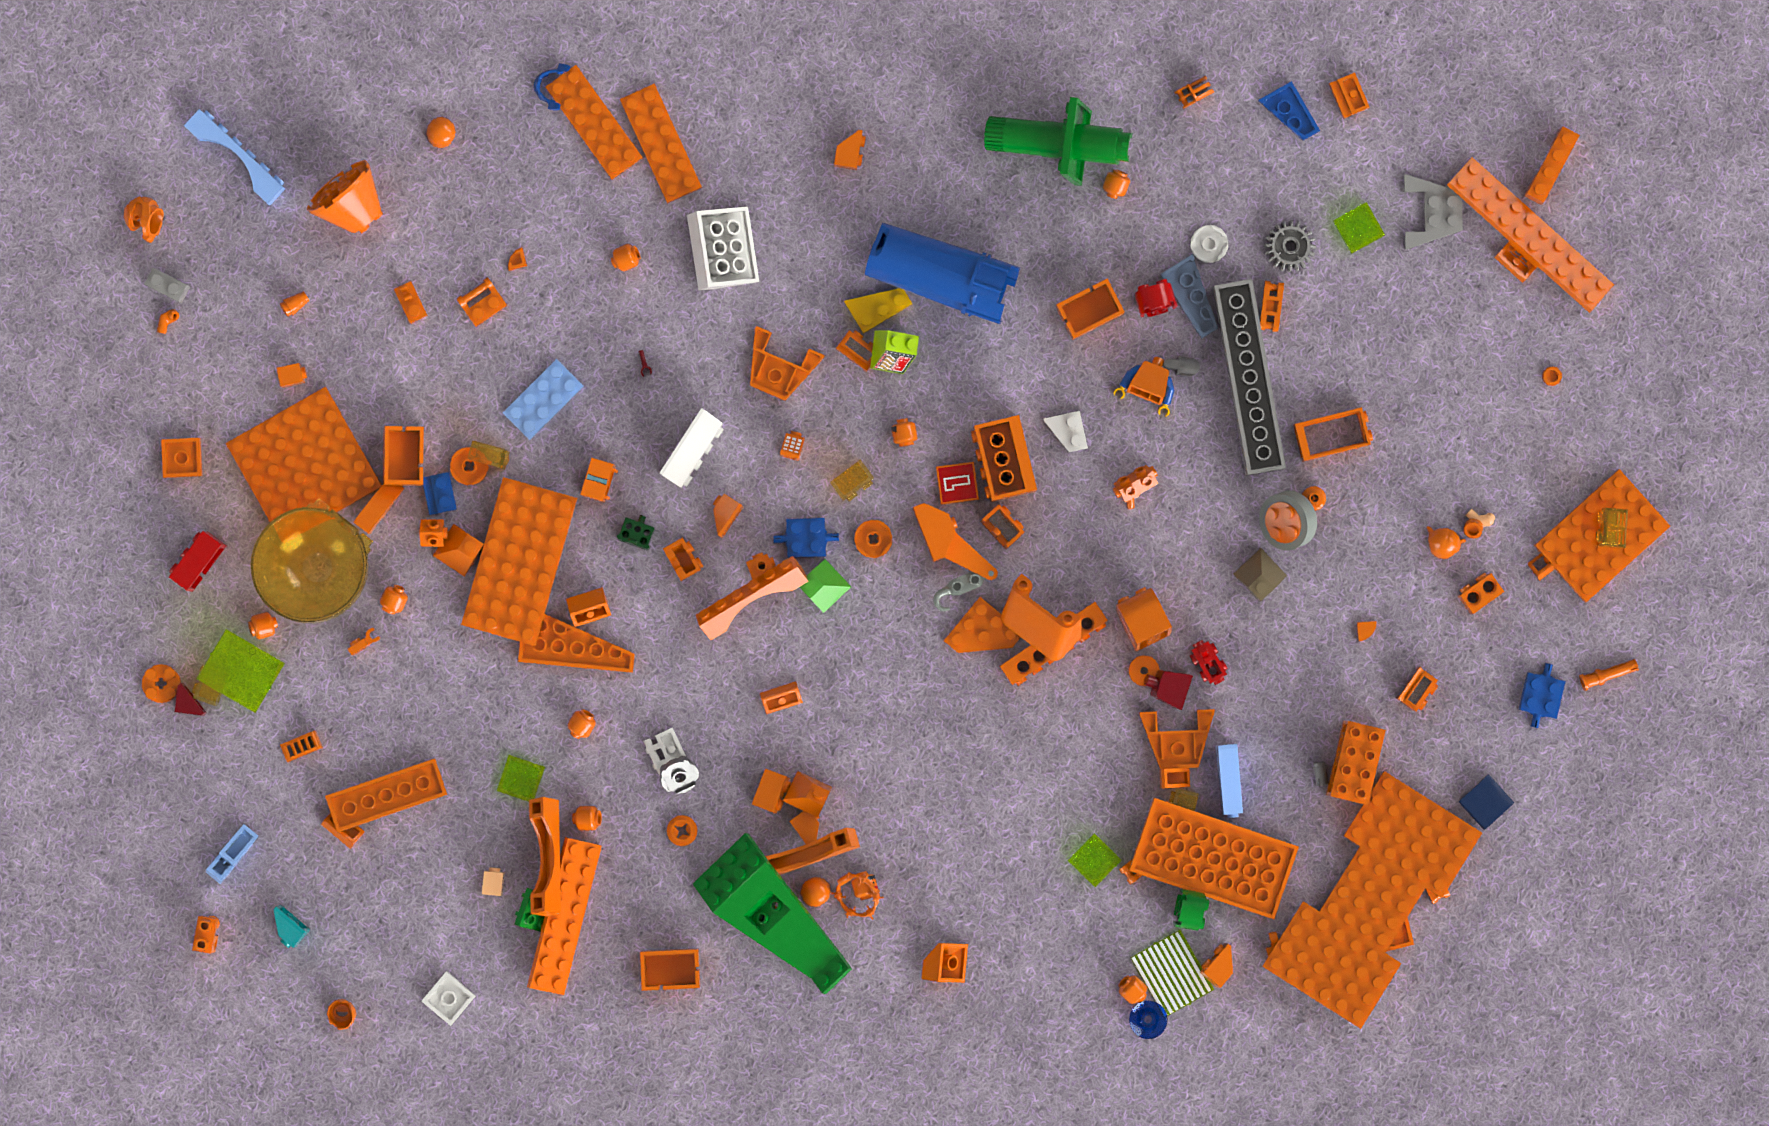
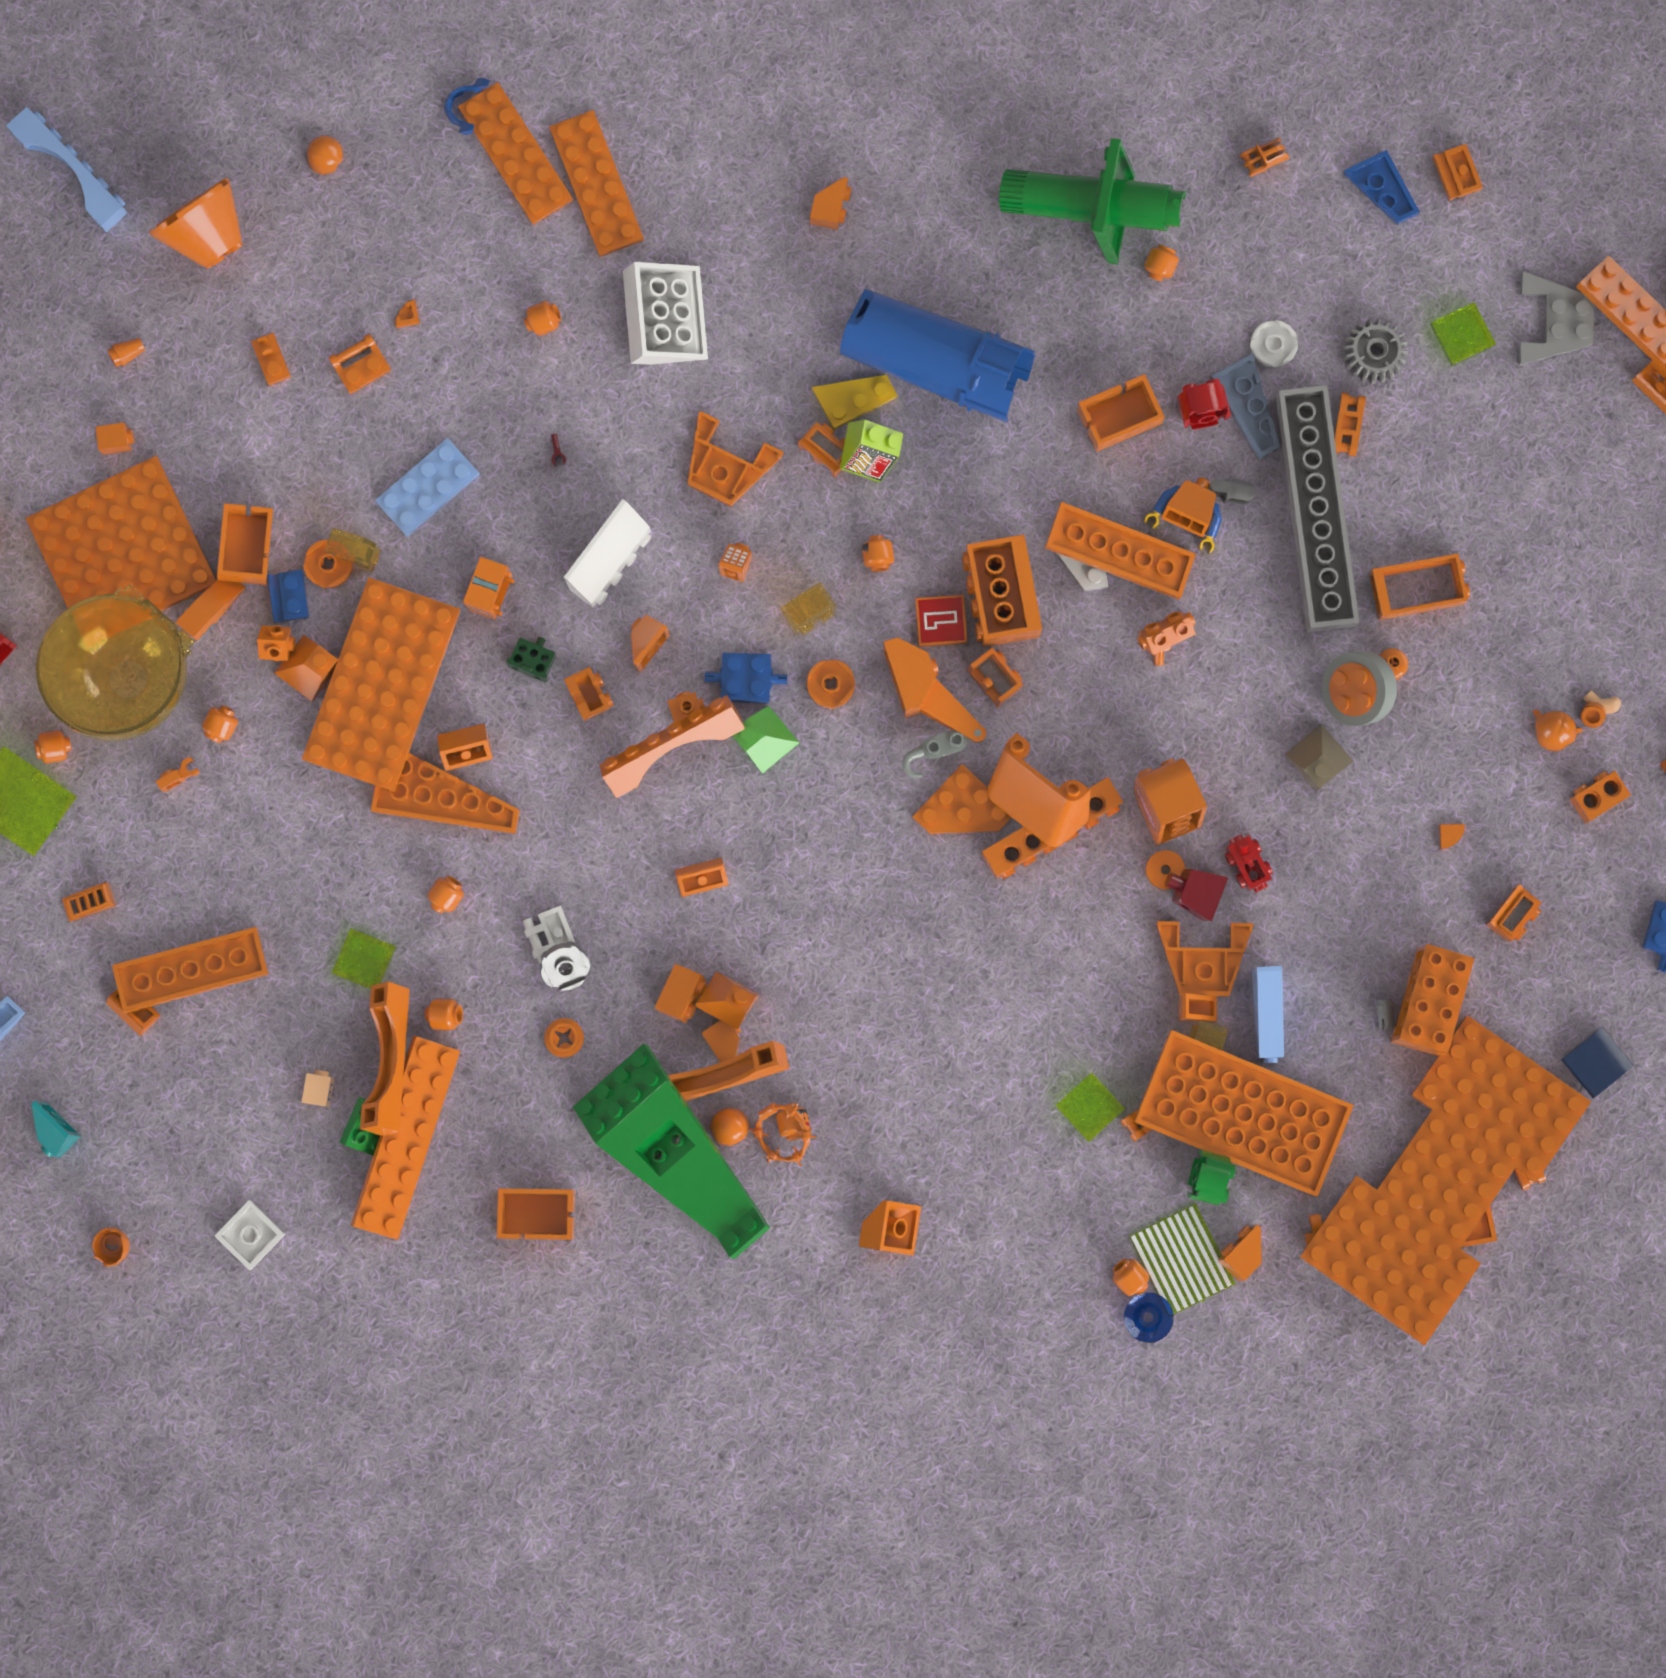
camera: 10 degrees right, 5 degrees down
(1095, 420) = (1120, 550): none -> orange plate

